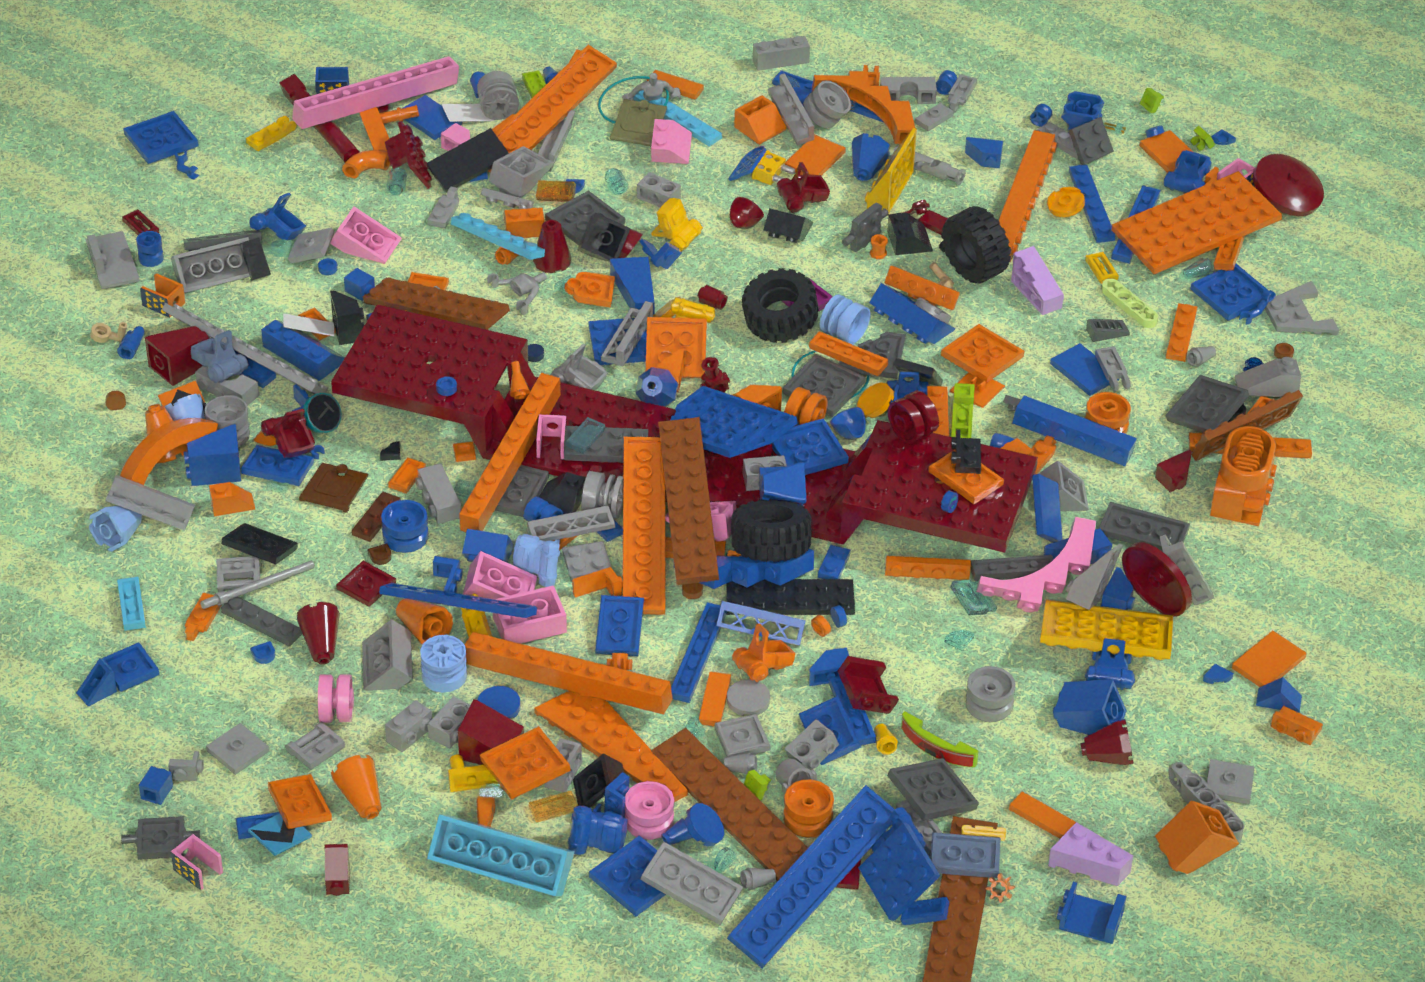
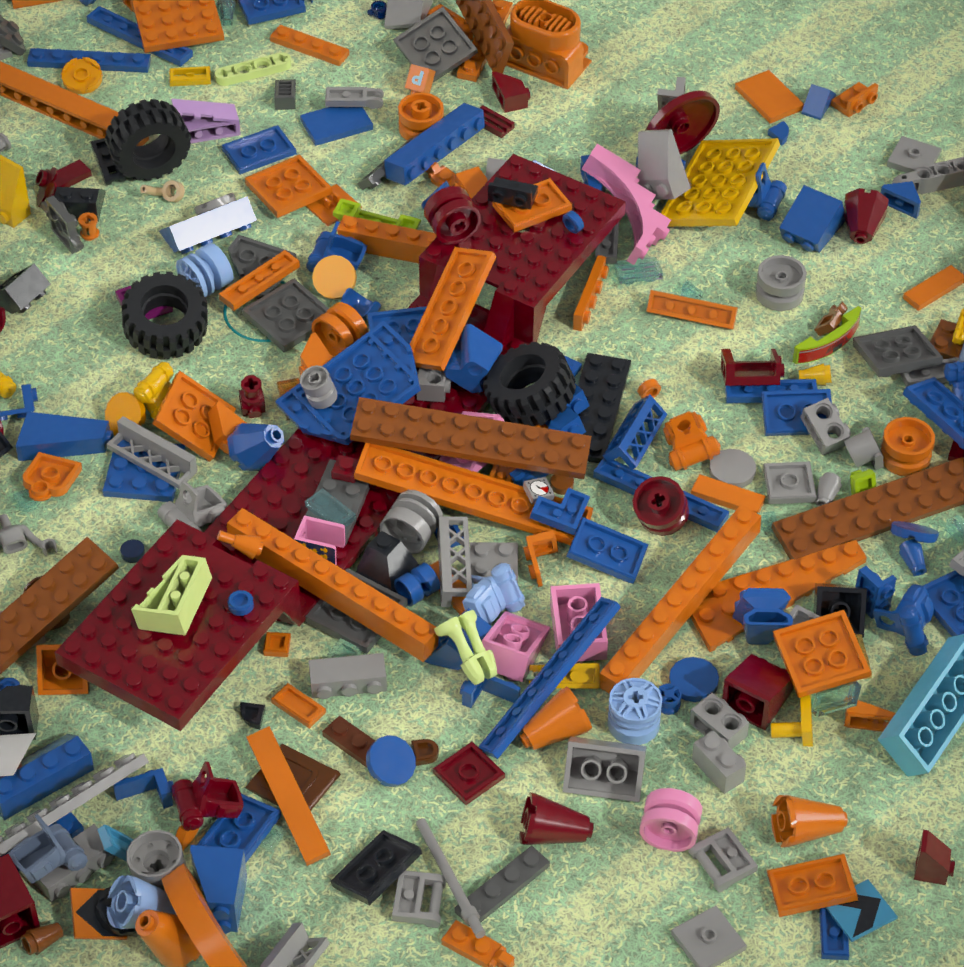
camera: 75 degrees left, 5 degrees up
(158, 382) = (40, 938): none -> dark orange cone
(229, 499) = (287, 890): orange slope -> none
(241, 389) = (114, 841): none -> dark azure tile
(263, 653) = (557, 891): blue tile -> none
(312, 481) = (288, 796): none -> orange tile
(322, 413) = (172, 764): black tile -> none
(359, 531) = (390, 761): none -> blue tile
(405, 526) = (399, 711): blue wheel -> none
(434, 346) = (176, 598): none -> yellowish green wedge
(451, 550) = (475, 666): none -> yellowish green piece
(469, 688) = (668, 693): none -> blue wheel
(561, 720) = (762, 613): none -> blue piece
(620, 661) = (667, 560): orange gear -> none
(633, 431) = (344, 469): none -> dark red plate
(640, 585) = (564, 515): none -> blue plate
(649, 810) = (894, 559): bright pink wheel -> none
(661, 563) = (538, 487): none -> tile
(671, 645) = (661, 505): none -> dark red wheel
(707, 395) = (318, 387): none -> light grey wheel
(712, 297) = (110, 376): dark red brick -> none
(819, 448) = (450, 307): none -> orange plate
(827, 666) = (710, 392): blue slope -> none
(838, 616) = (639, 373): blue tile -> none
(921, 287) = (181, 202): orange bracket -> none
(926, 373) = (317, 229): black tile -> none
(934, 640) = (692, 309): none -> orange plate
(954, 739) = (831, 320): none -> dark orange plate
(1026, 328) = (259, 149): none -> blue tile
(1136, 525) = (578, 133): dark grey plate -> none
(1139, 459) = (495, 119): none -> dark red tile
(1159, 406) = (419, 79): none -> orange brick
(1159, 775) = (903, 197): none -> blue slope
(1200, 355) = (351, 39): light grey cone -> none

